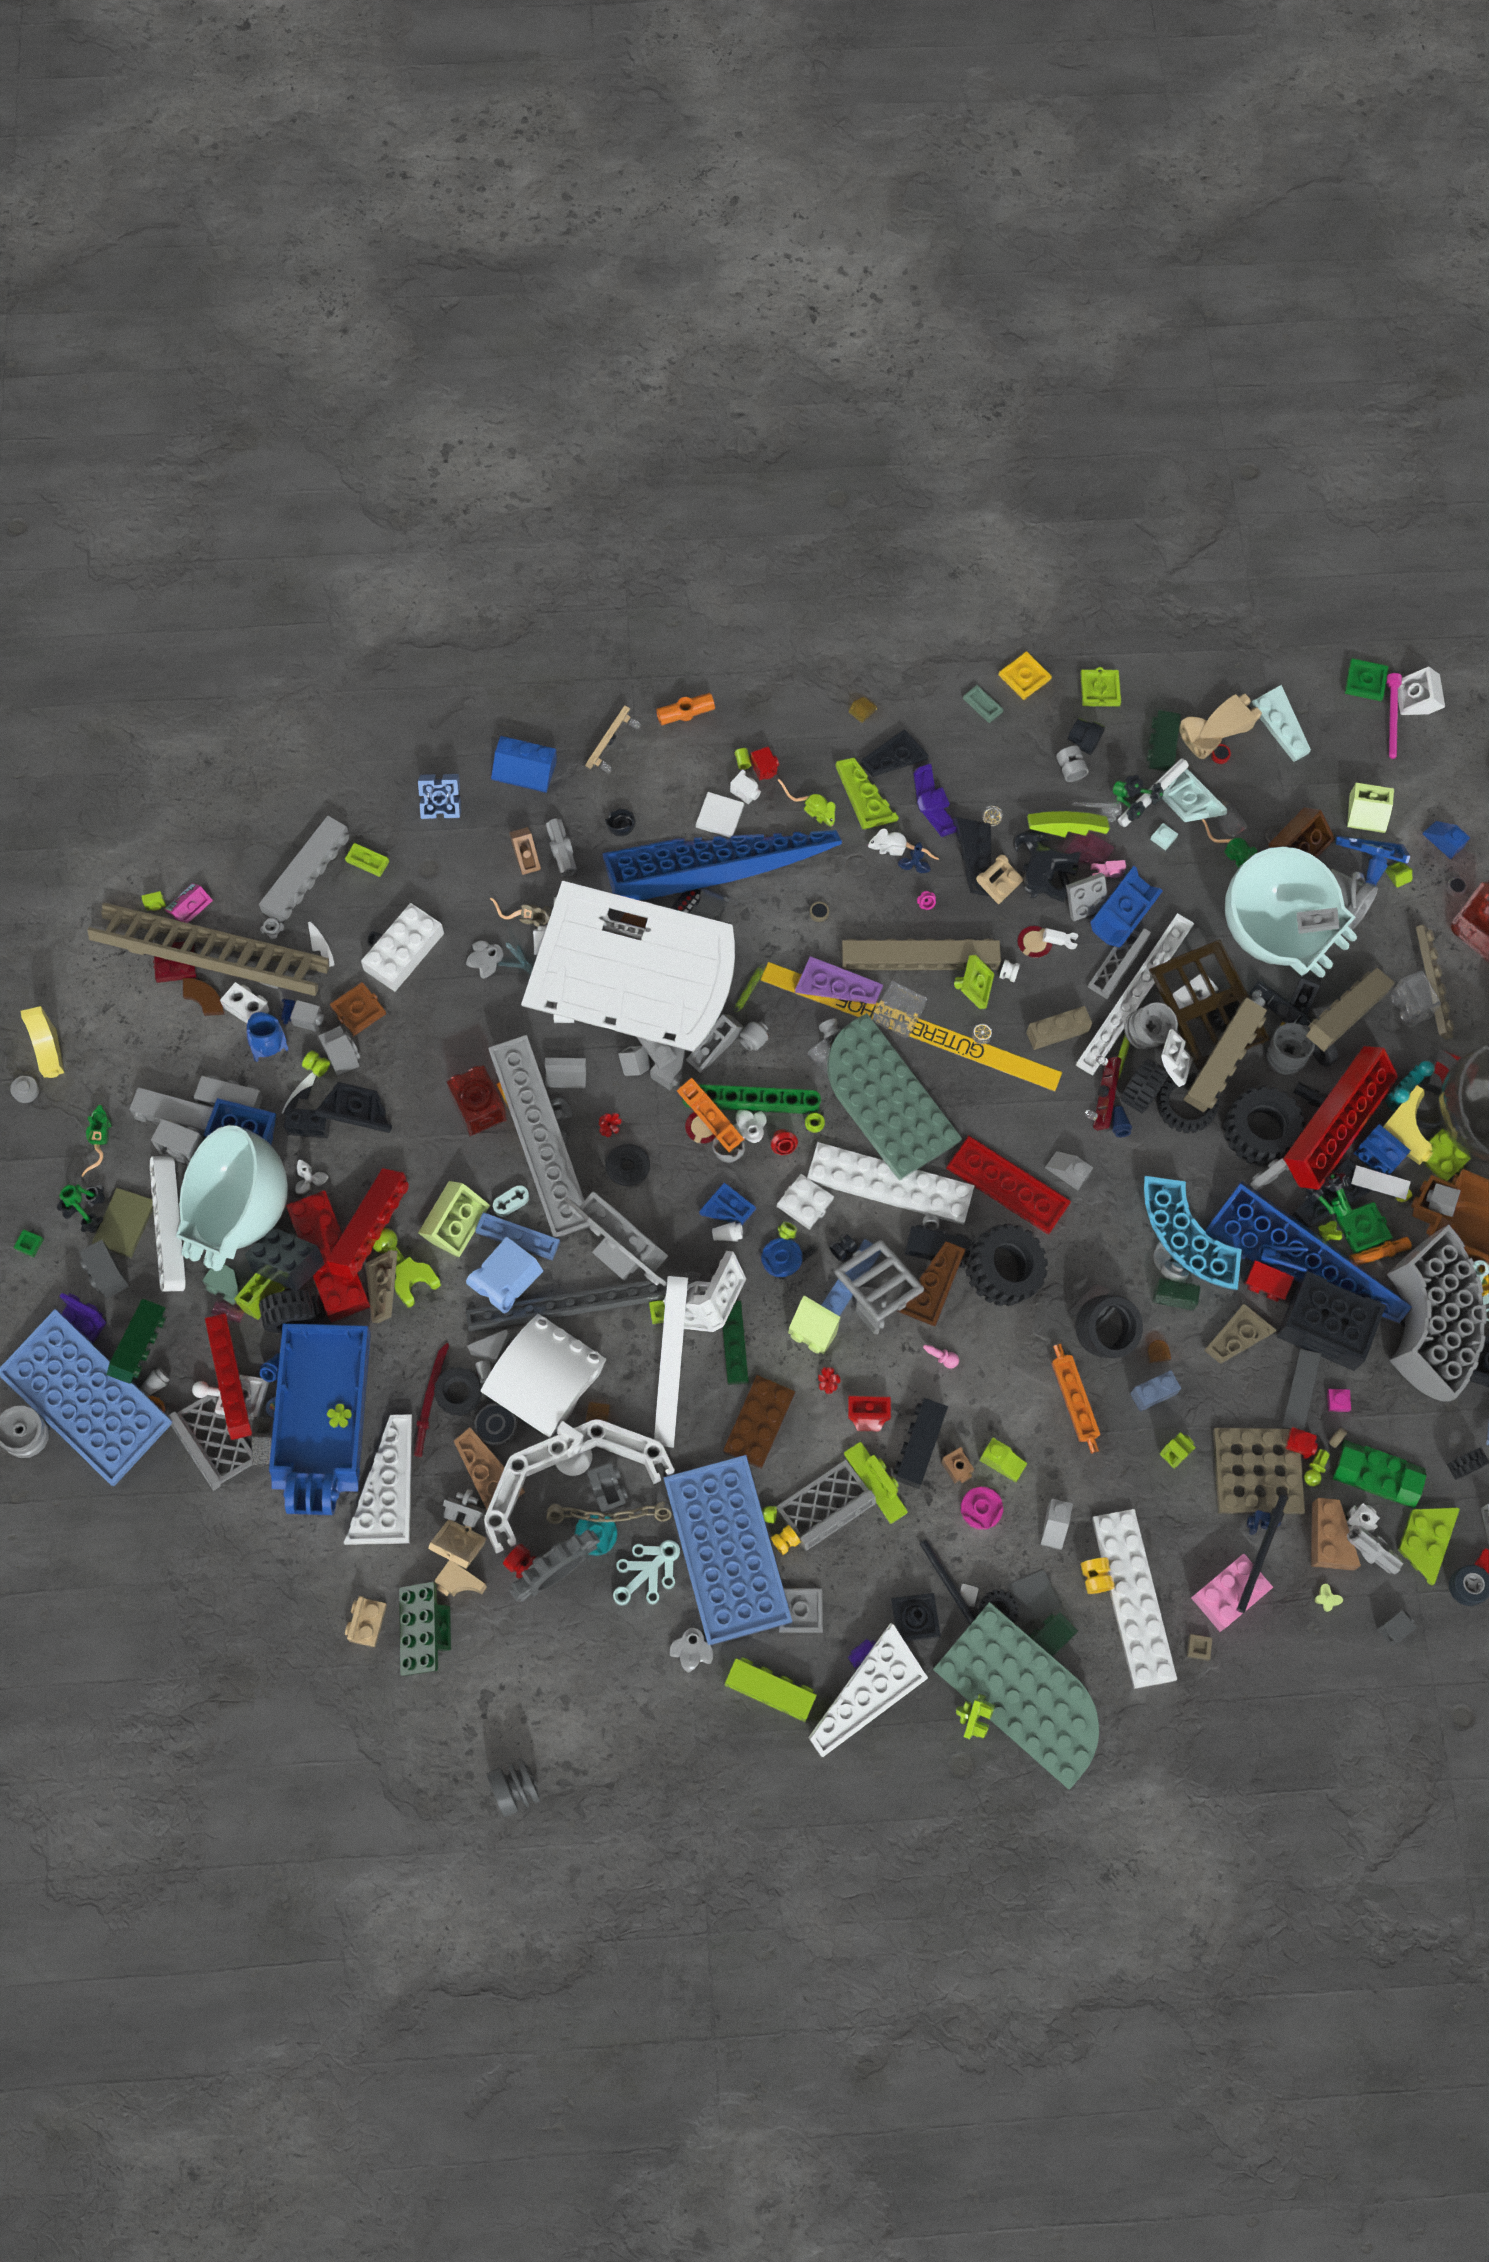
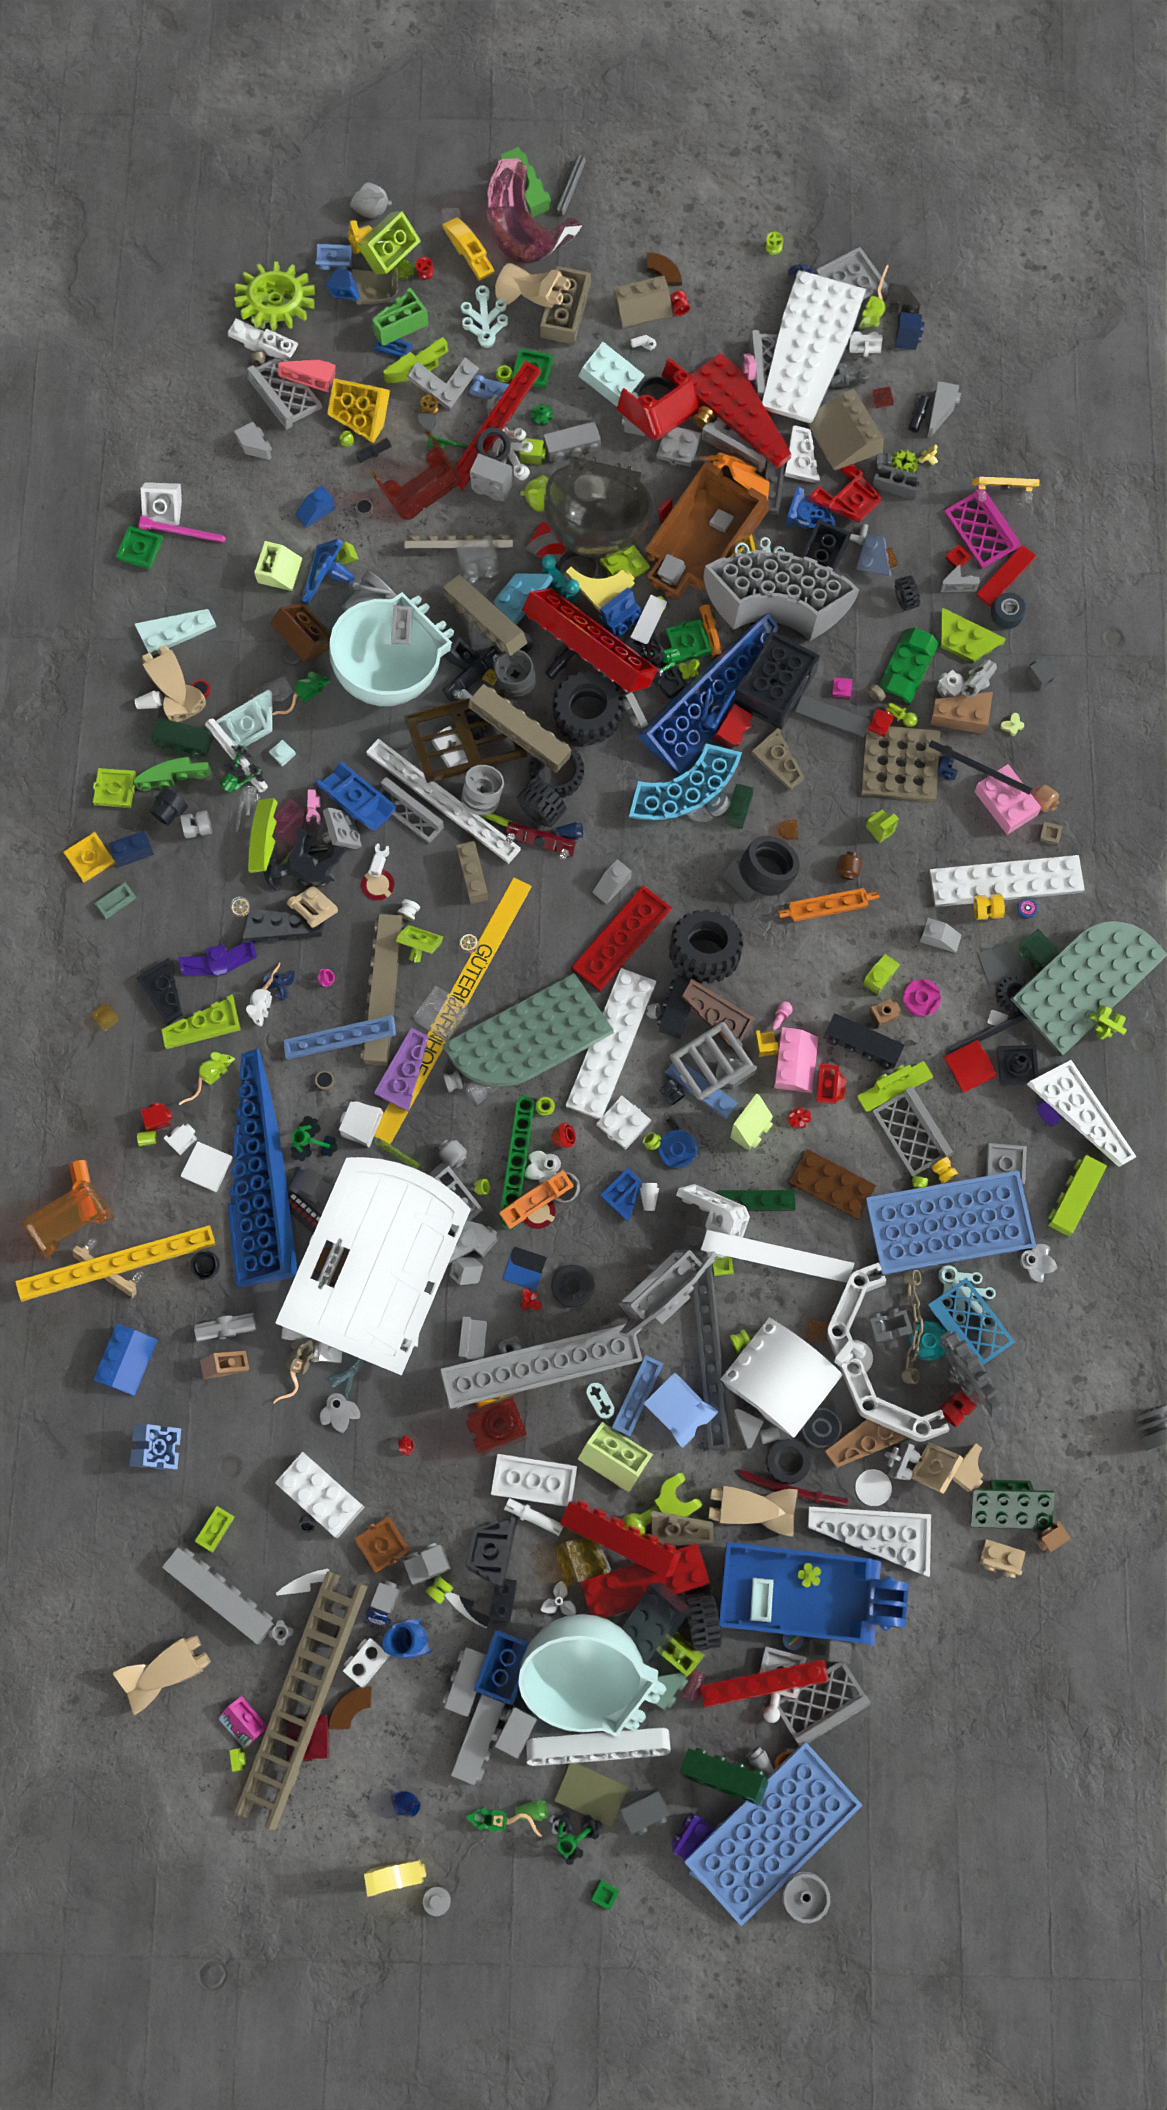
camera: 80 degrees left, 5 degrees up
(107, 1170) = (536, 1810): none -> bright green cone
(113, 1052) = (405, 1803): none -> clear blue rock
(236, 834) = (172, 1666): none -> tan hips
(269, 1369) = (757, 1641): blue cone -> none
(312, 1368) = (761, 1600): none -> light aqua tile
(347, 1194) = (581, 1560): none -> clear yellow bracket
(389, 1675) = (1052, 1537): none -> medium nougat brick
(391, 1144) = (533, 1516): none -> white pin
(407, 1347) = (745, 1507): none -> tan hips
(426, 1143) = (533, 1480): none -> white plate
(436, 1483) = (873, 1487): none -> white sticker
(455, 1020) = (405, 1445): none -> red plate
(581, 1333) = (739, 1340): none -> lime wheel
(601, 1563) = (950, 1325): none -> dark azure fence
(614, 742) = (115, 1263): none -> yellow plate
(643, 1118) = (524, 1268): none -> sticker
(656, 692) = (65, 1217): none -> clear orange windscreen
(718, 1068) = (482, 1186): none -> lime hinge
(745, 896) = (301, 1140): none -> black plant
(777, 947) = (360, 1123): none -> white torso
(862, 916) = (339, 1037): none -> medium blue plate
(892, 1373) = (796, 1060): none -> bright pink slope
(907, 1564) = (970, 1066): none -> red slope
(908, 1340) = (766, 1044): none -> yellow panel
(1037, 709) = (131, 848): none -> dark blue brick
(1103, 1623) = (1027, 908): none -> tile
(1123, 731) = (165, 773): none -> bright green slope
(1124, 1417) = (849, 865): none -> reddish brown head
(1155, 1391) = (827, 836): sand blue brick -> none
(1176, 1059) = (521, 769): white slope -> none
(1199, 707) = (150, 700): none -> white cone
(1240, 1637) = (1046, 798): none -> medium nougat head
(1376, 1036) = (515, 593): none -> medium azure wing

